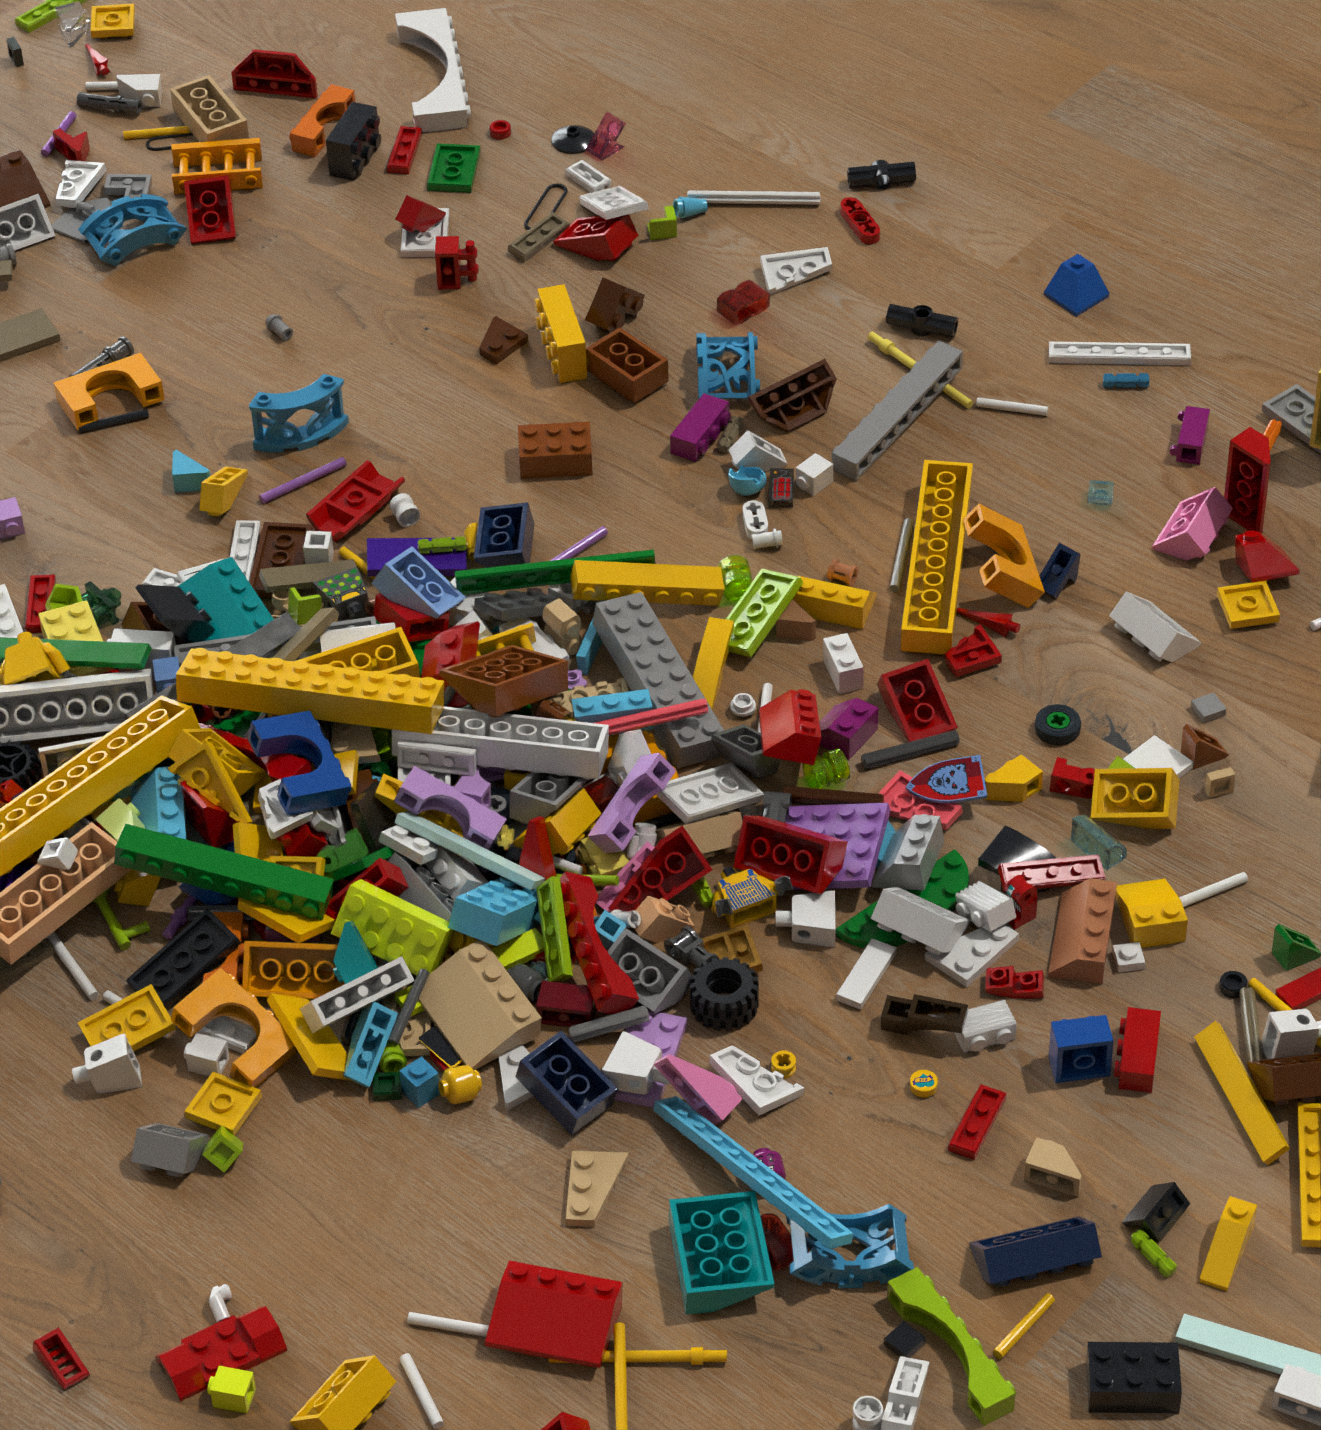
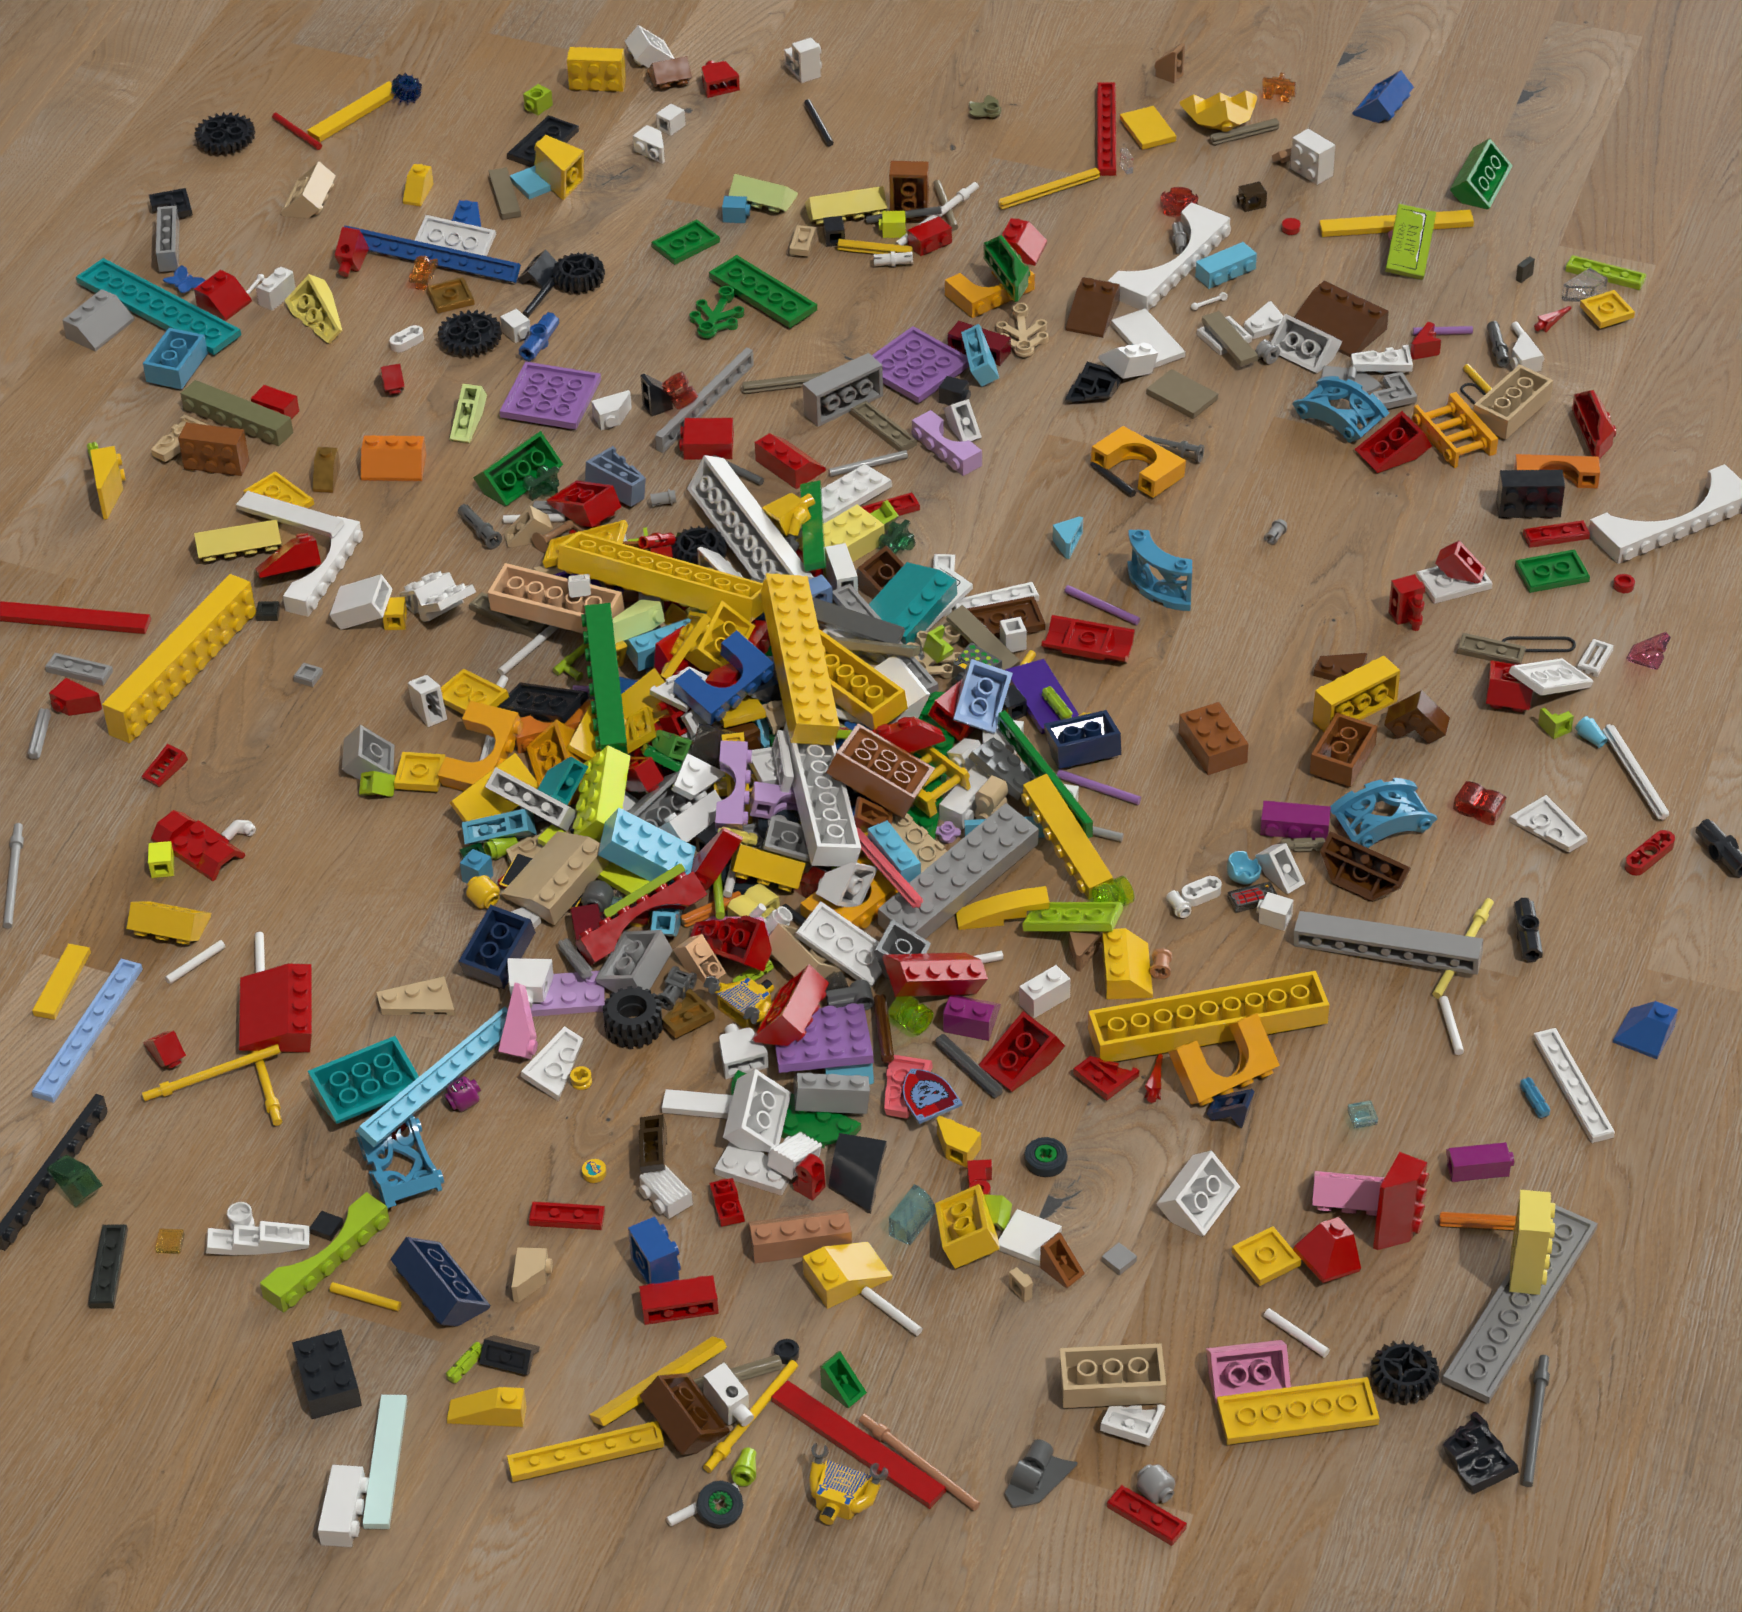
camera: 70 degrees right, 0 degrees up
(178, 611) = (872, 566): black slope -> none
(206, 1055) = (461, 745): white brick -> none
(221, 490) = (1058, 560): yellow slope -> none
(404, 509) = (1092, 672): white wheel -> none
(408, 1006) = (536, 833): dark grey bar -> none
(469, 850) = (699, 813): light aqua tile -> none
(572, 139) = (1640, 630): black dish -> none
(631, 918) = (681, 935): white pin -> none
(645, 780) = (788, 889): lavender arch -> none
(743, 705) = (969, 944): white plate -> none
(1054, 872) = (855, 1191): tile -> none
(1128, 957) = (788, 1271): white plate -> none

